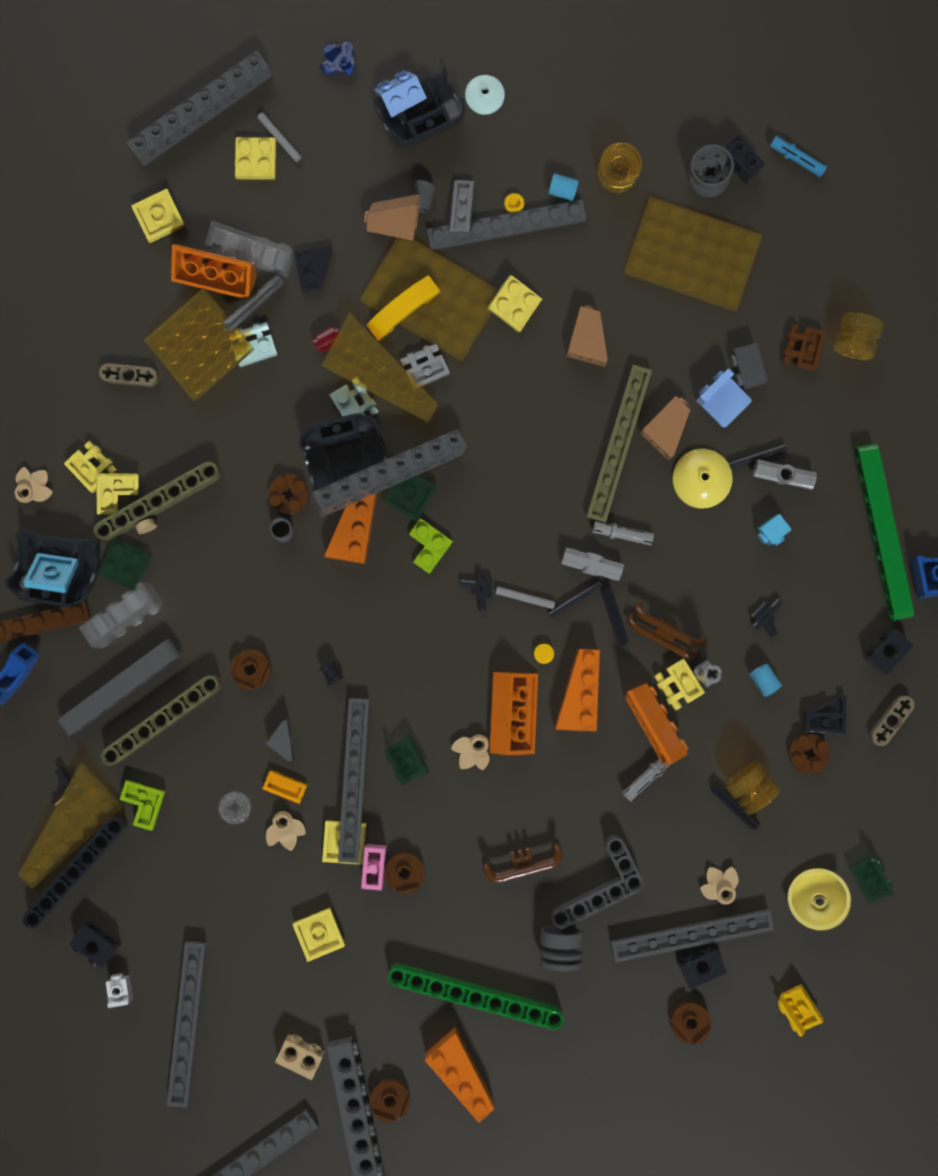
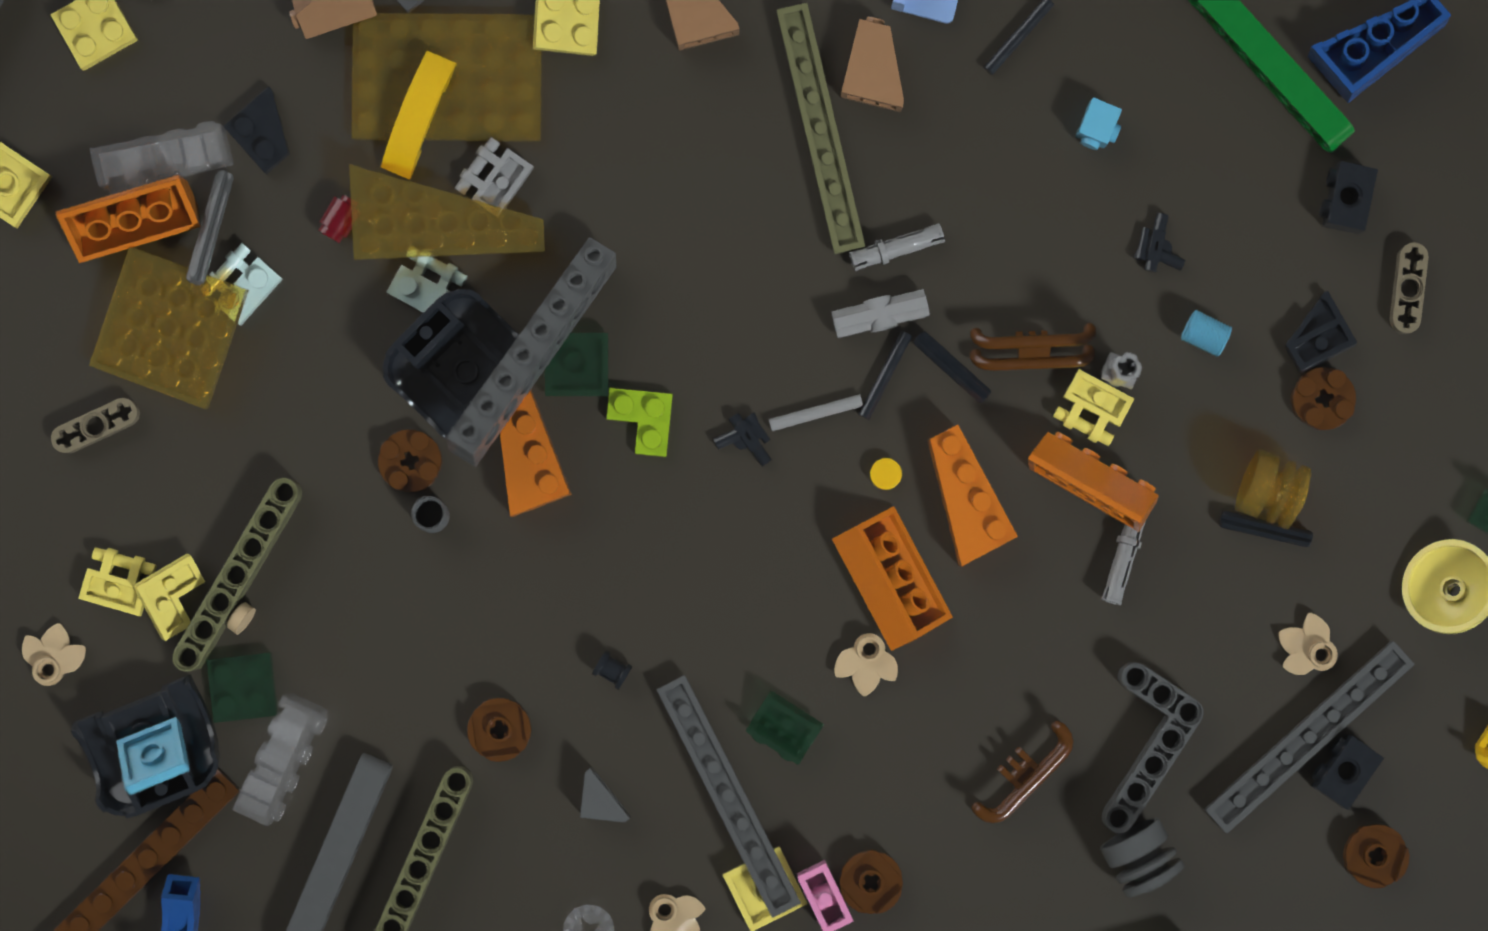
camera: 30 degrees left, 0 degrees up
(285, 786) = (639, 861): light orange tile -> none
(690, 485) = (957, 131): light yellow dish -> none
(772, 472) = (1088, 34): light grey piece -> none

